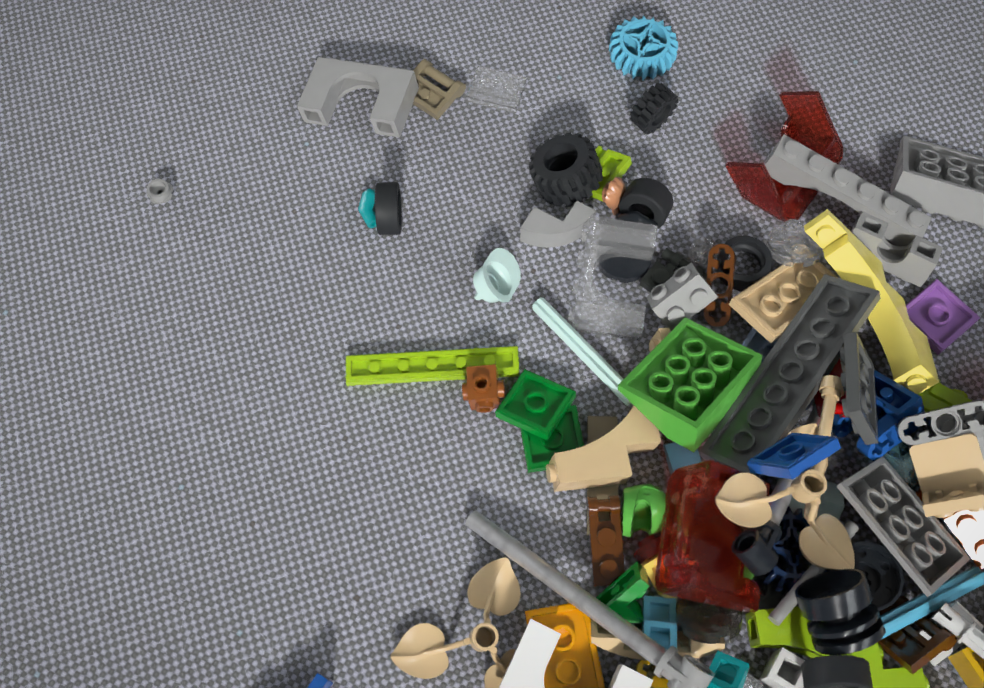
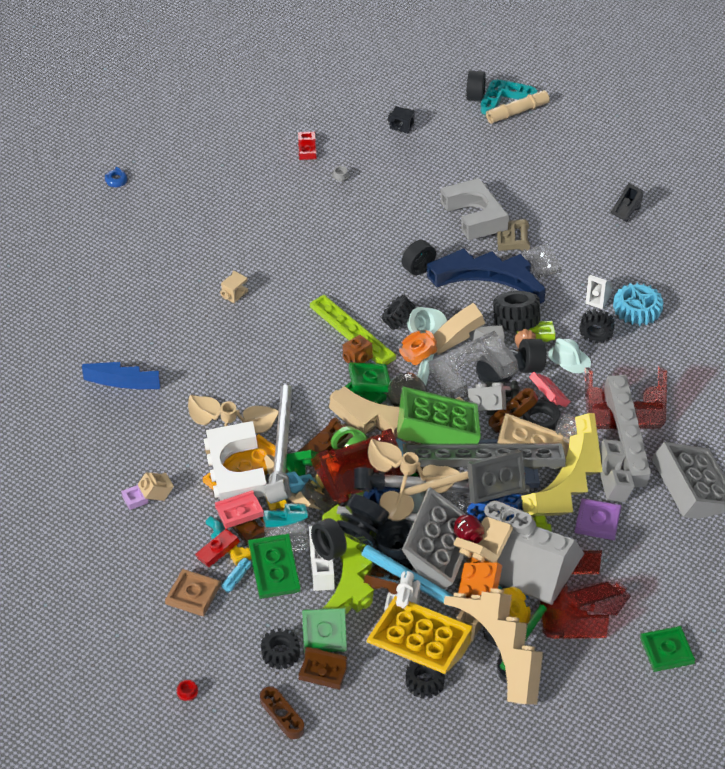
camera: 50 degrees right, 20 degrees down
(74, 193) = (306, 145): none -> red slope
(138, 65) = (401, 119): none -> black brick
(239, 456) = (232, 287): none -> tan window
(464, 146) = (487, 267): none -> dark blue arch
(472, 295) = (398, 312): none -> black tyre
(542, 252) = (458, 328): none -> tan slope
(544, 325) = (426, 346): none -> orange plate
(596, 380) = (403, 380): none -> clear smoke cylinder
(597, 69) = (598, 291): none -> white slope
(665, 166) = (567, 355): none -> light aqua piece
(711, 224) = (549, 389): none -> coral plate
(793, 455) = (426, 457): blue tile -> none
(920, 482) = (469, 529): none -> dark red head

